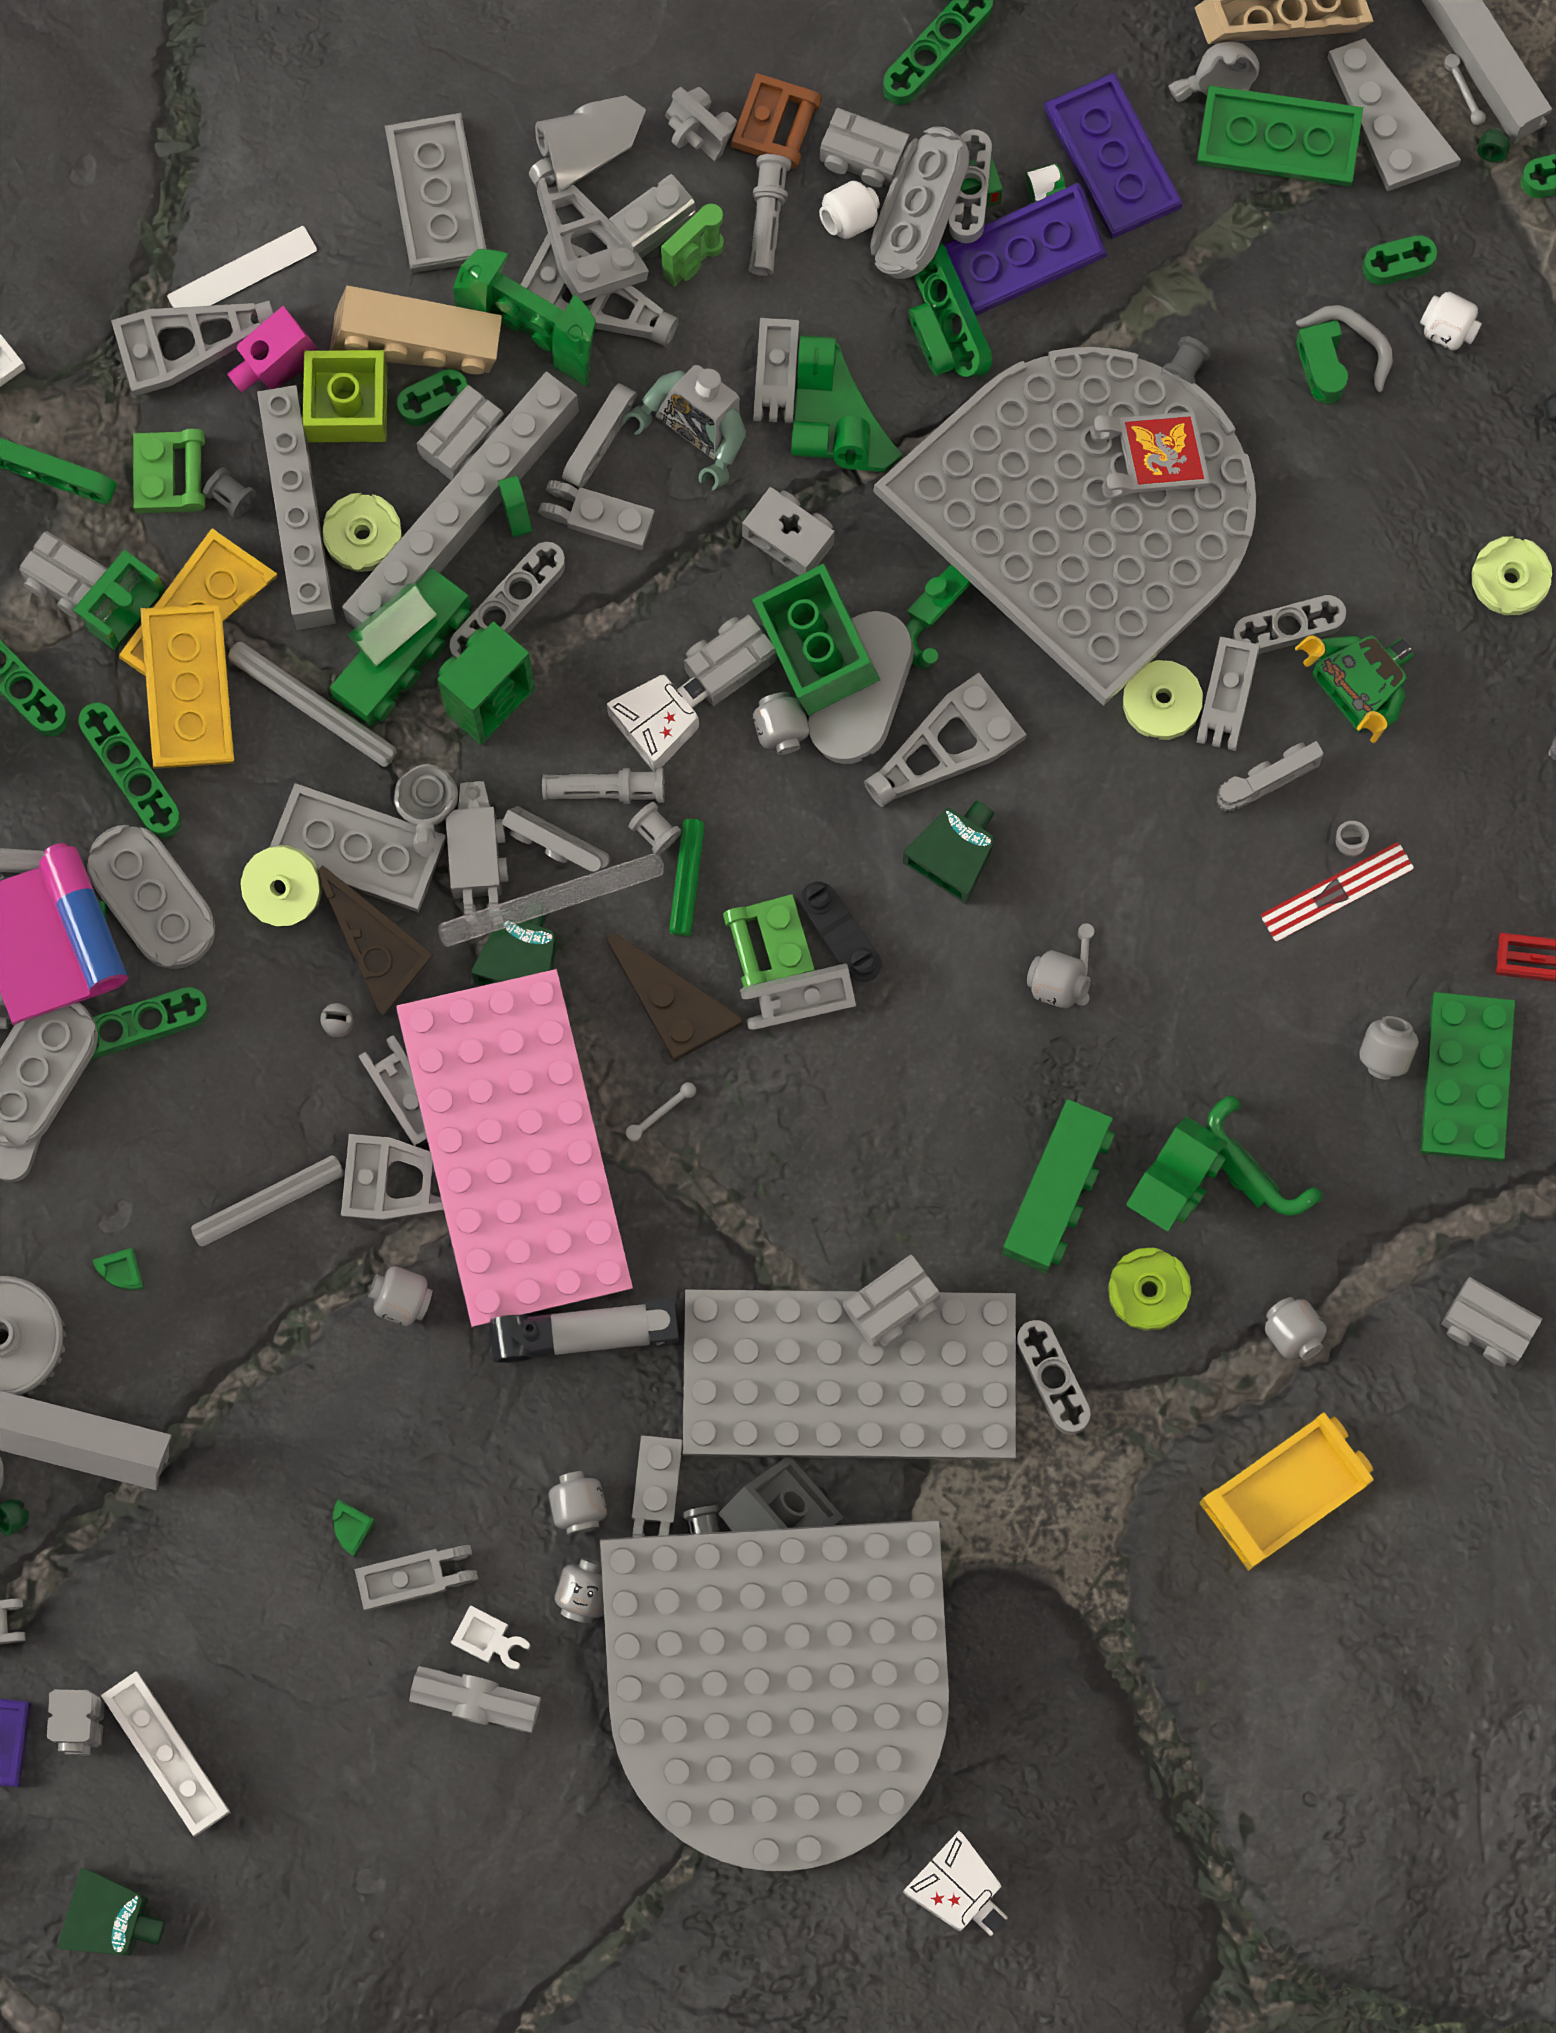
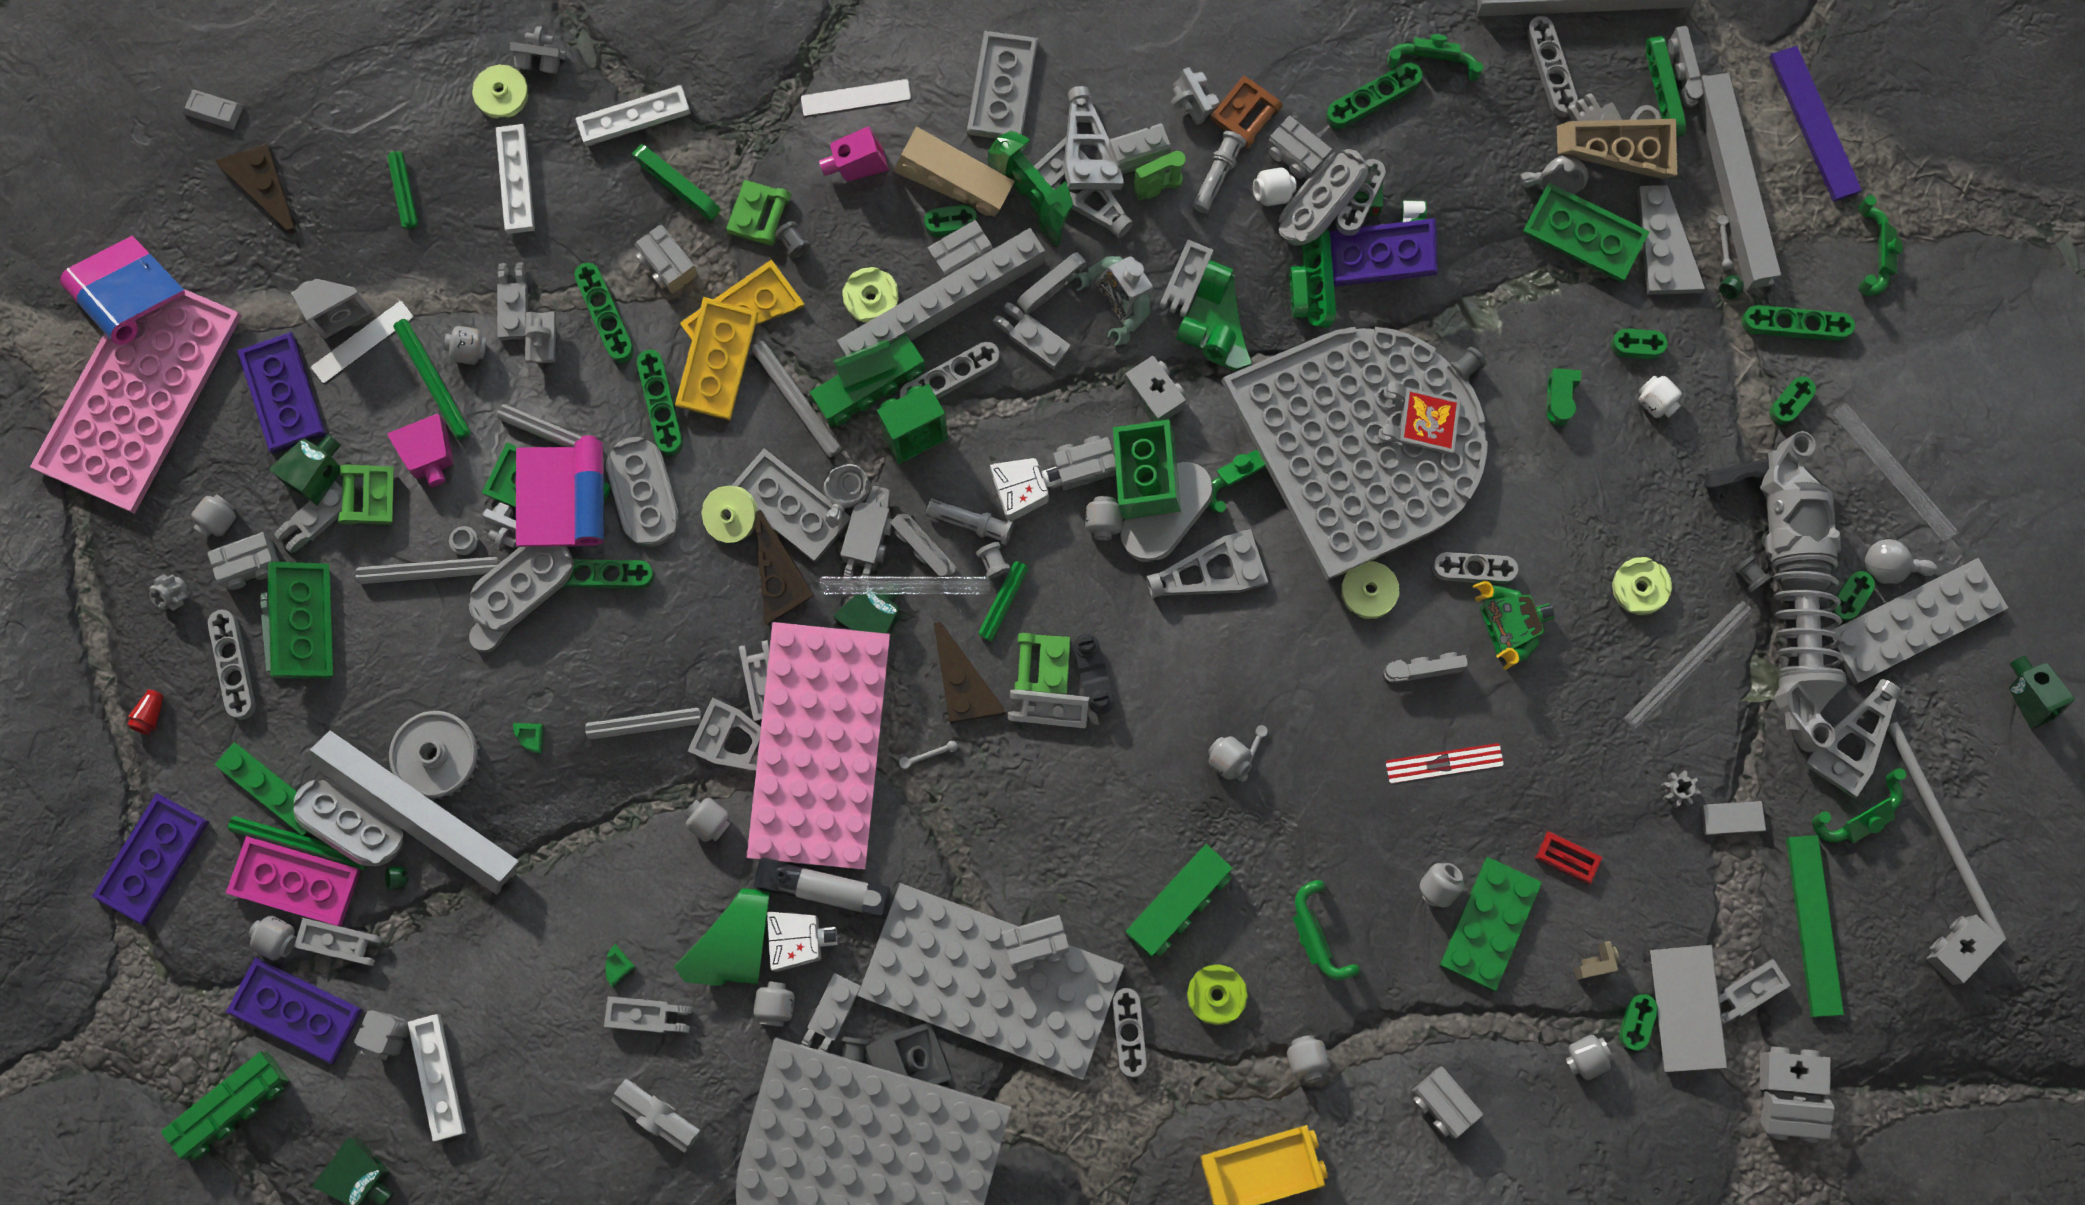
camera: 20 degrees right, 0 degrees up
(115, 600) = (690, 284): green window -> none
(142, 352) = (770, 128): light grey plate -> none
(296, 508) = (832, 264): light grey brick -> none
(335, 1027) = (732, 622): light grey hinge -> none
(345, 396) = (891, 200): lime brick -> none
(484, 1635) = (677, 1074): white plate -> none
(495, 1446) = (731, 945): none -> green panel
(514, 506) = (976, 311): green beam -> none
(577, 1409) = (796, 939): none -> white torso
(581, 1591) = (752, 1066): light grey head -> none
(588, 137) = (1116, 81): light grey panel -> none
(953, 850) = (1190, 644): dark green torso -> none
(1113, 155) = (1466, 209): dark purple tile -> none
(1175, 1179) = (1258, 928): green brick -> none
(1228, 691) = (1417, 599): light grey hinge -> none
(1350, 833) = (1469, 726): light grey hinge -> none
(1363, 328) = (1598, 383): light grey animal -> none

